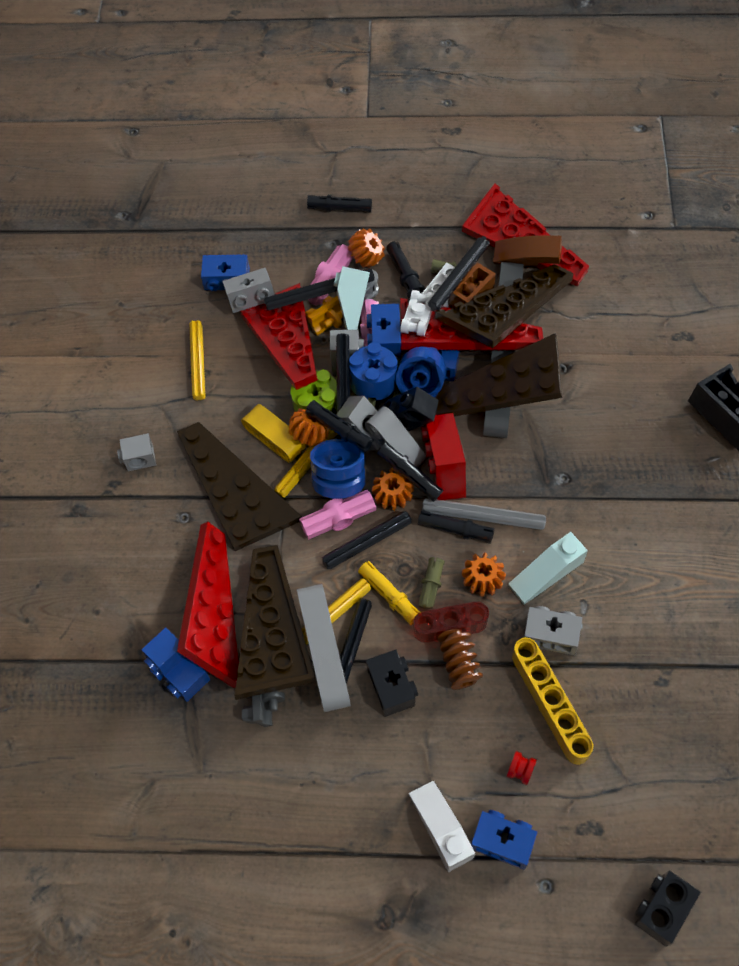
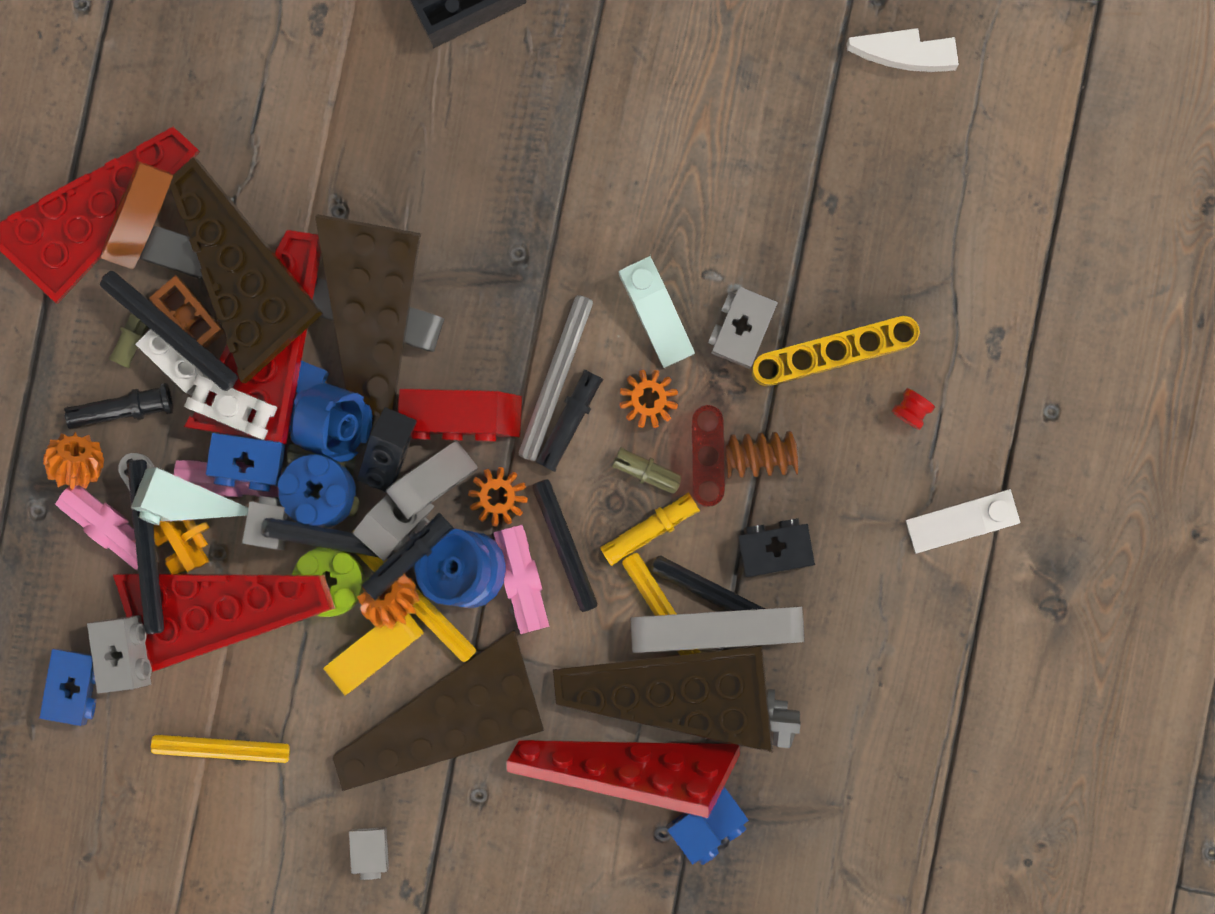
camera: 80 degrees left, 25 degrees up
(410, 471) = (477, 477): black pin -> none
(516, 850) = (1011, 440): blue brick -> none
(672, 912) = (1110, 271): black brick -> none

